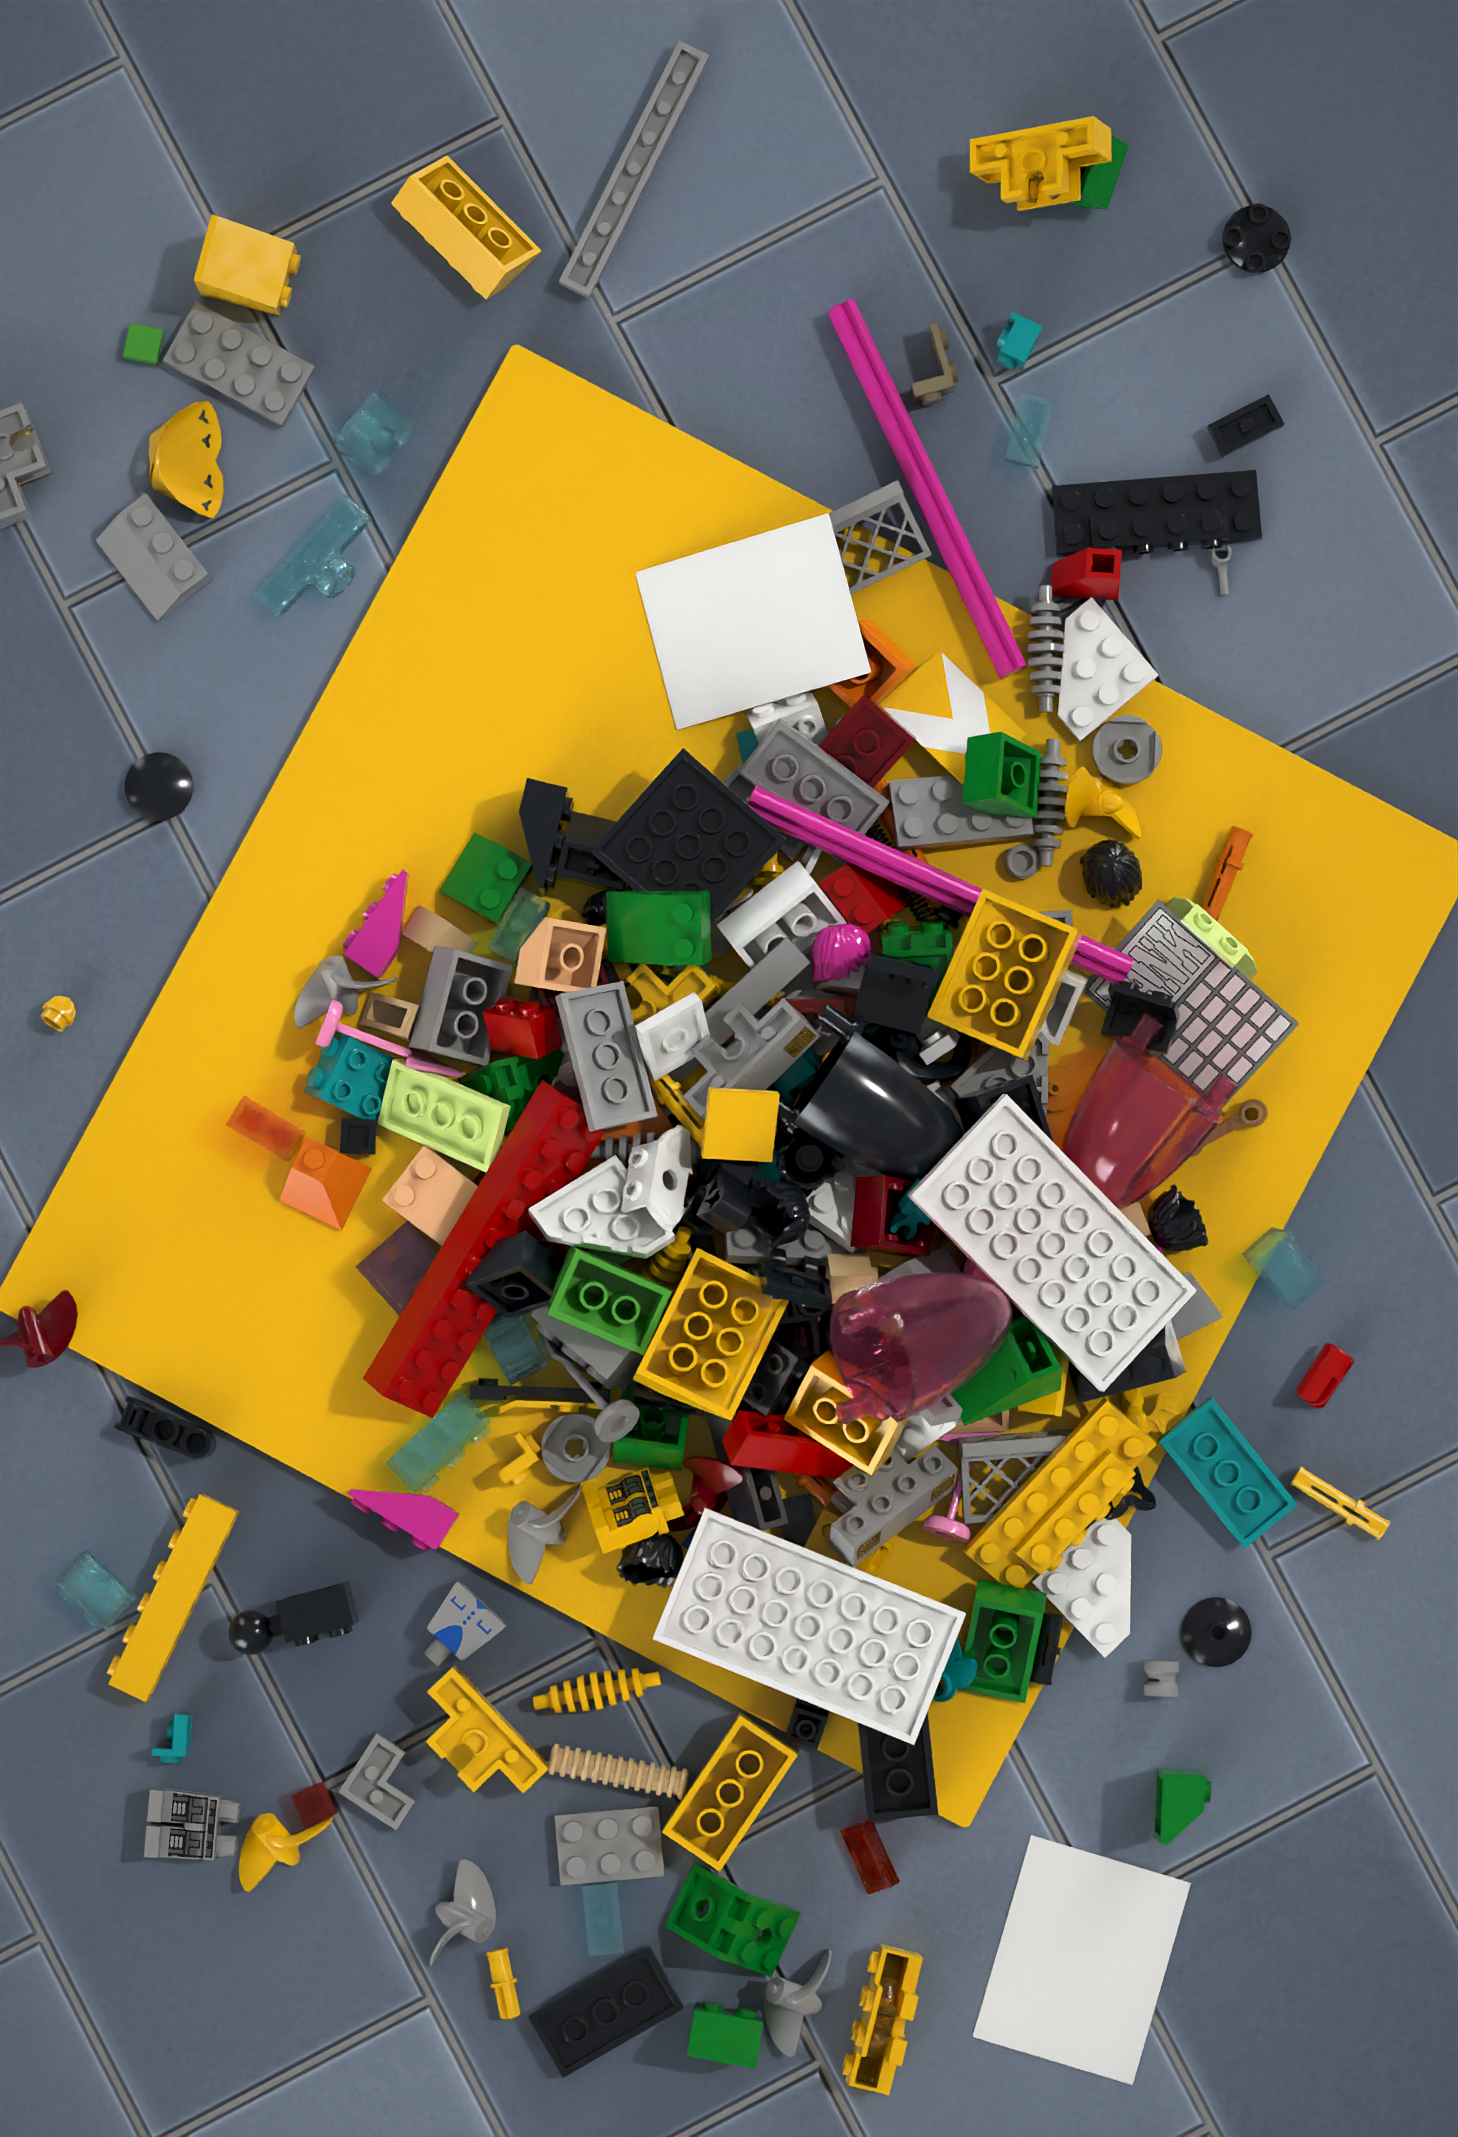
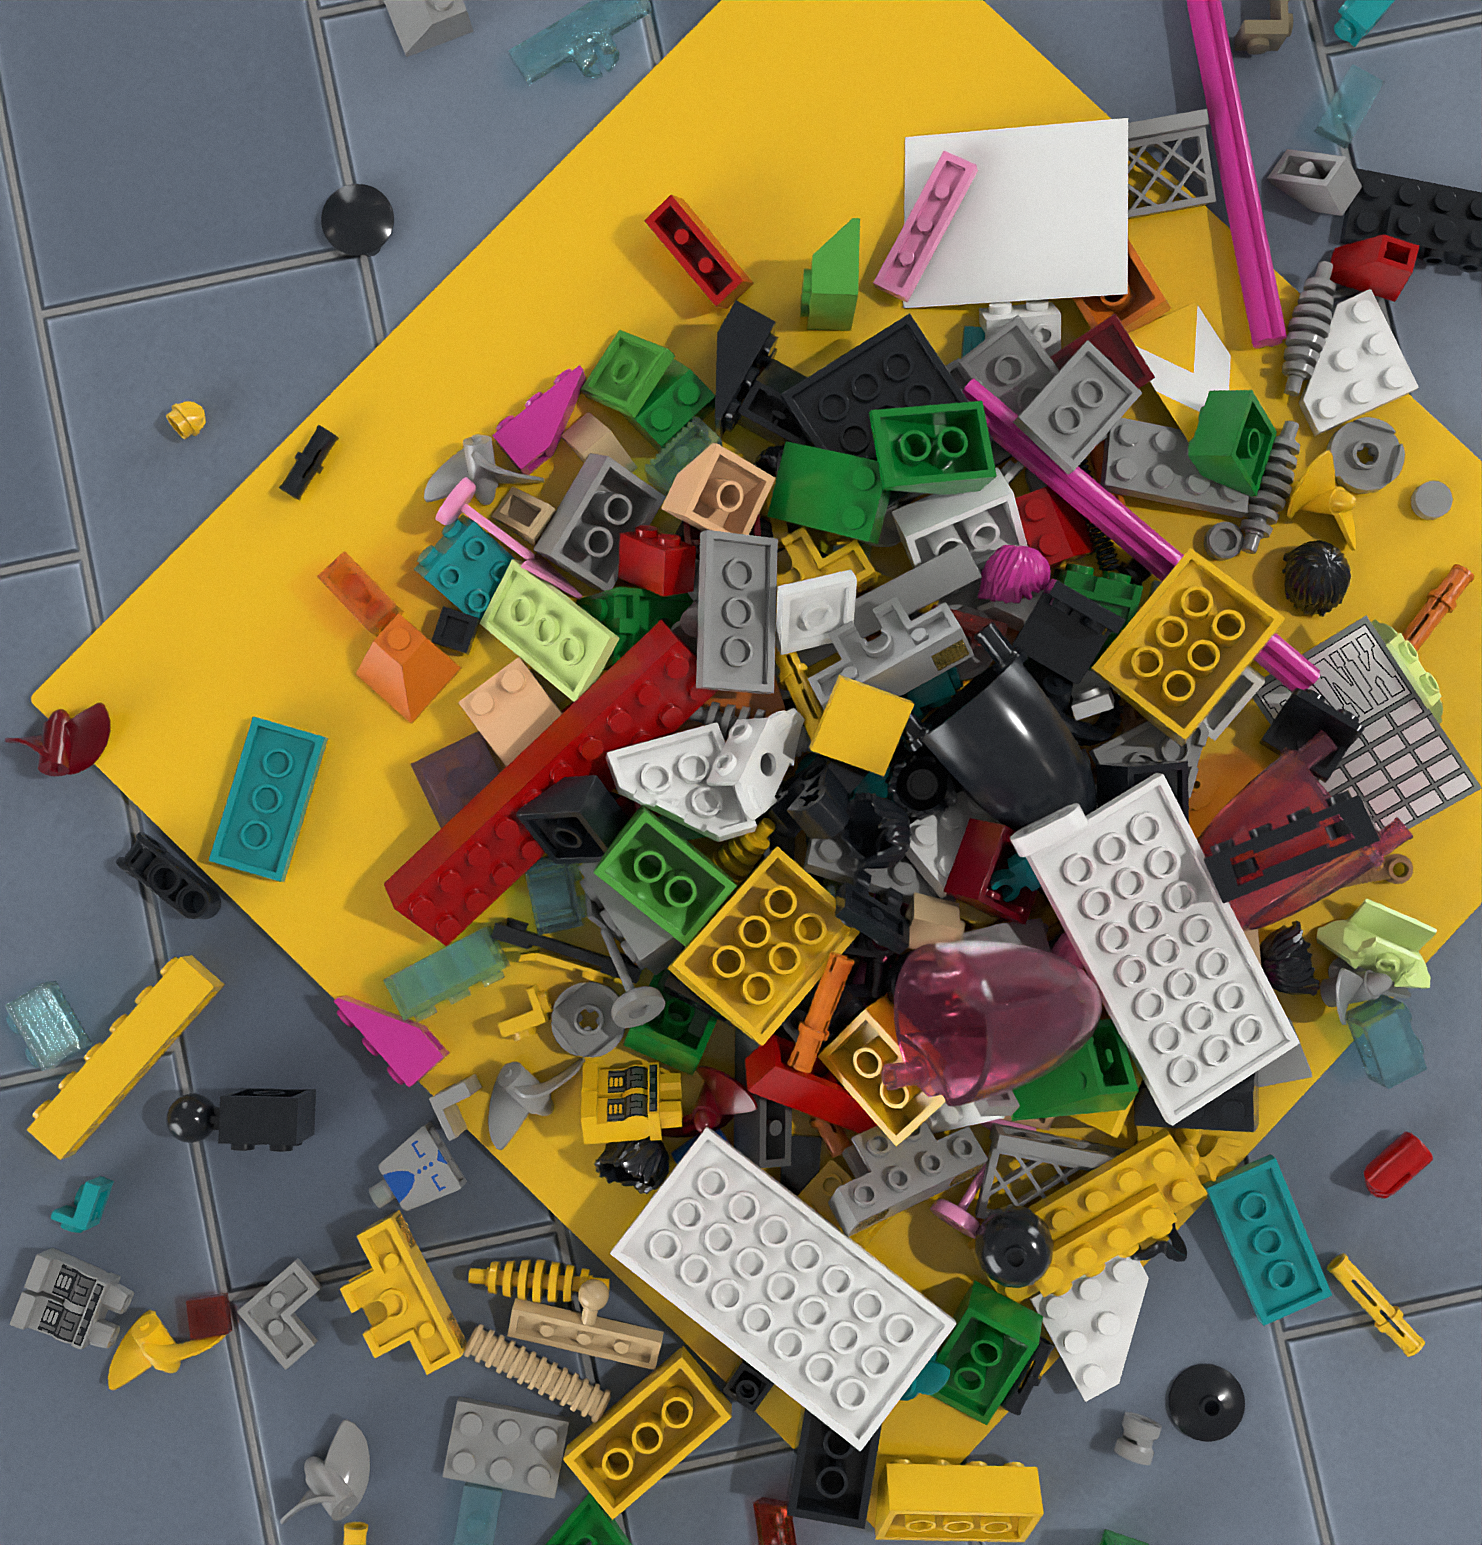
camera: 15 degrees right, 0 degrees up
(182, 1022) = (308, 462): none -> black pin
(235, 1333) = (268, 799): none -> teal plate
(446, 863) = (627, 373): none -> bright green tile
(473, 1547) = (446, 1108): none -> light grey panel
(479, 735) = (698, 251): none -> red brick
(607, 734) = (832, 282): none -> bright green slope
(651, 1722) = (586, 1331): none -> tan plate
(676, 654) = (925, 226): none -> bright pink plate
(734, 869) = (933, 448): none -> green slope
(773, 1378) = (814, 1027): none -> orange pin
(853, 789) = (1077, 407): none -> light grey plate
(921, 1169) = (1049, 830): none -> white beam
(1000, 1535) = (1014, 1246): none -> black cylinder
(1016, 1776) = (957, 1502): none -> yellow slope
(1017, 509) = (1316, 180): none -> light grey slope
(1085, 1162) = (1227, 873): none -> black brick
(1198, 772) = (1431, 500): none -> light grey tile
(1243, 1220) = (1354, 986): none -> light grey piece
(1257, 1184) = (1381, 942): none -> yellowish green piece

